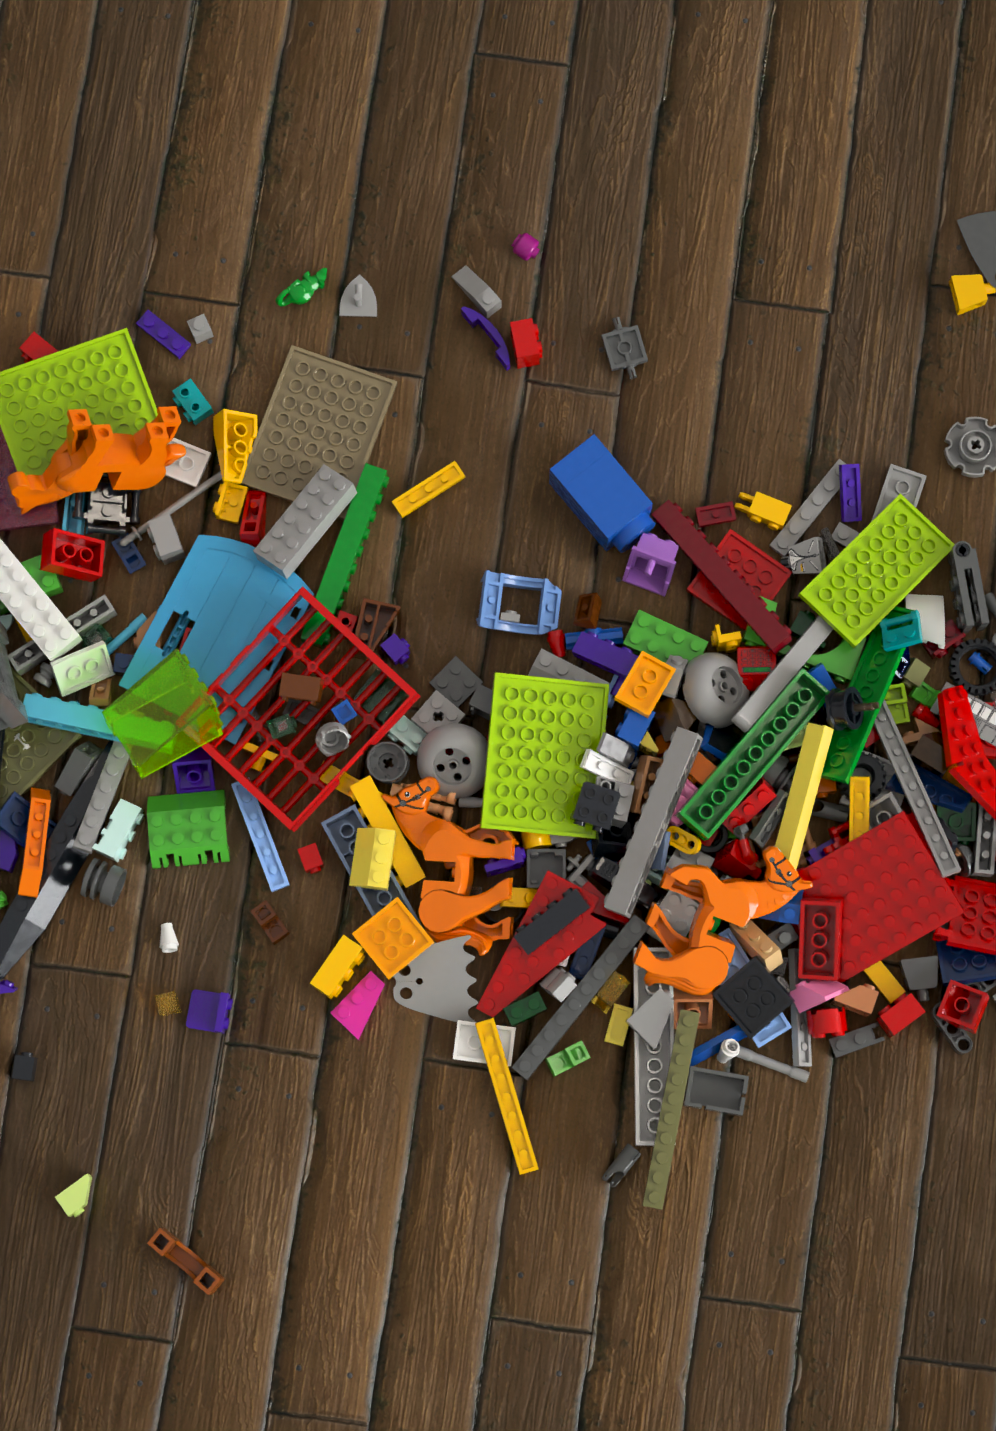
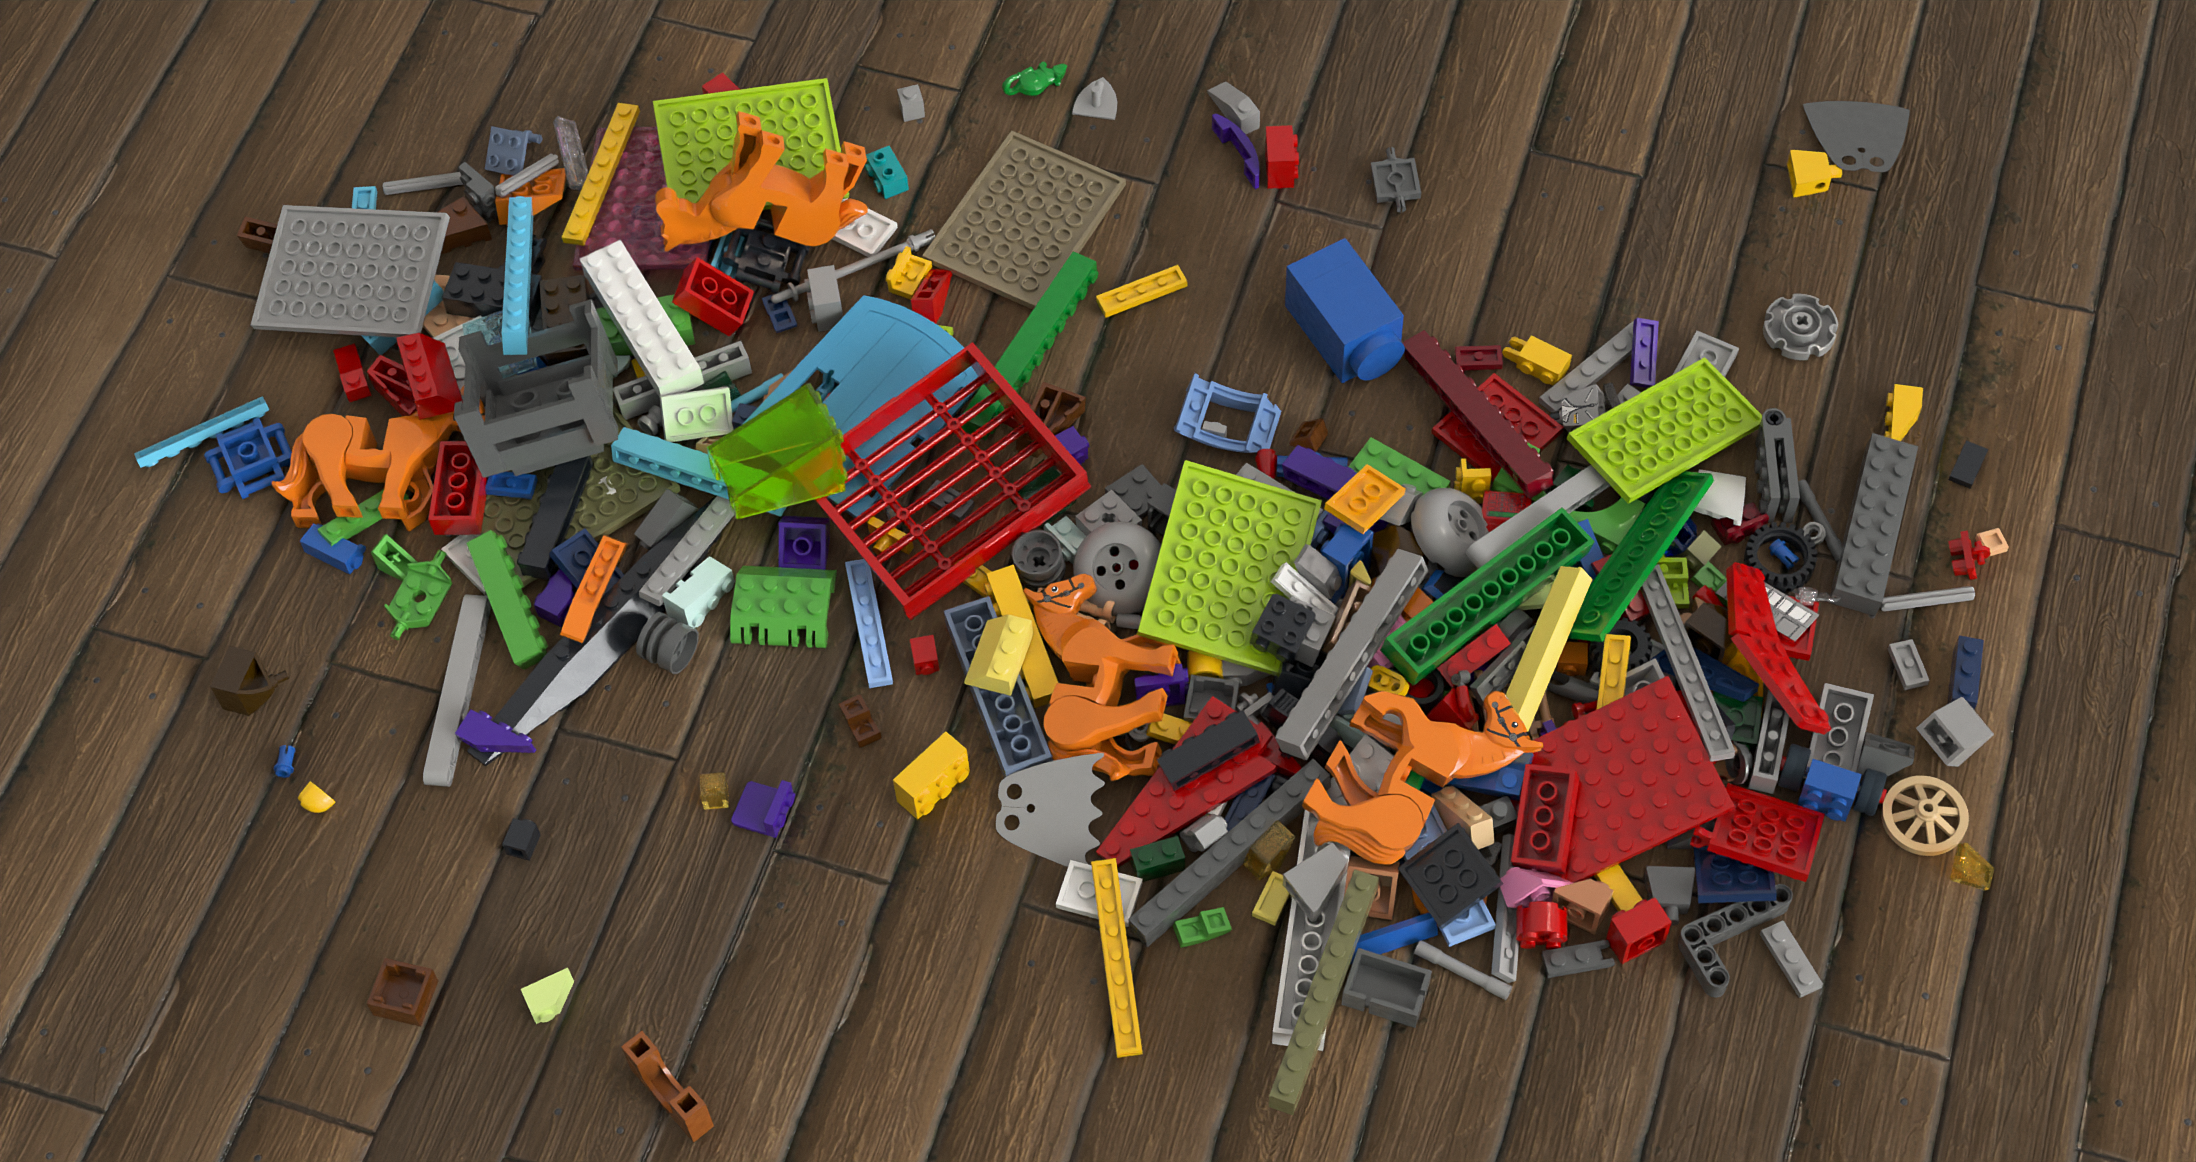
camera: 10 degrees right, 20 degrees down
(163, 334) = (868, 106): dark purple plate -> none
(168, 939) = (731, 722): white cone -> none
(234, 440) = (925, 211): yellow wedge -> none
(282, 726) = (918, 497): clear green window -> none
(301, 688) = (949, 453): reddish brown container -> none
(305, 521) = (990, 295): light grey brick -> none
(332, 738) = (975, 515): light grey hair -> none
(344, 712) = (995, 491): blue plate -> none
(358, 1005) = (949, 828): dark pink wing -> none
(393, 938) = (1006, 745): light orange plate -> none
(525, 246) = (1297, 68): magenta head -> none
(621, 1164) = (1253, 1060): dark grey piece -> none
(651, 564) = (1393, 393): medium lavender piece -> none
(728, 1050) = (1409, 941): white cone -> none
(846, 708) = (1610, 556): black wheel -> none
(902, 636) = (1690, 495): teal plate -> none
(963, 1006) = (1722, 925): red slope -> none

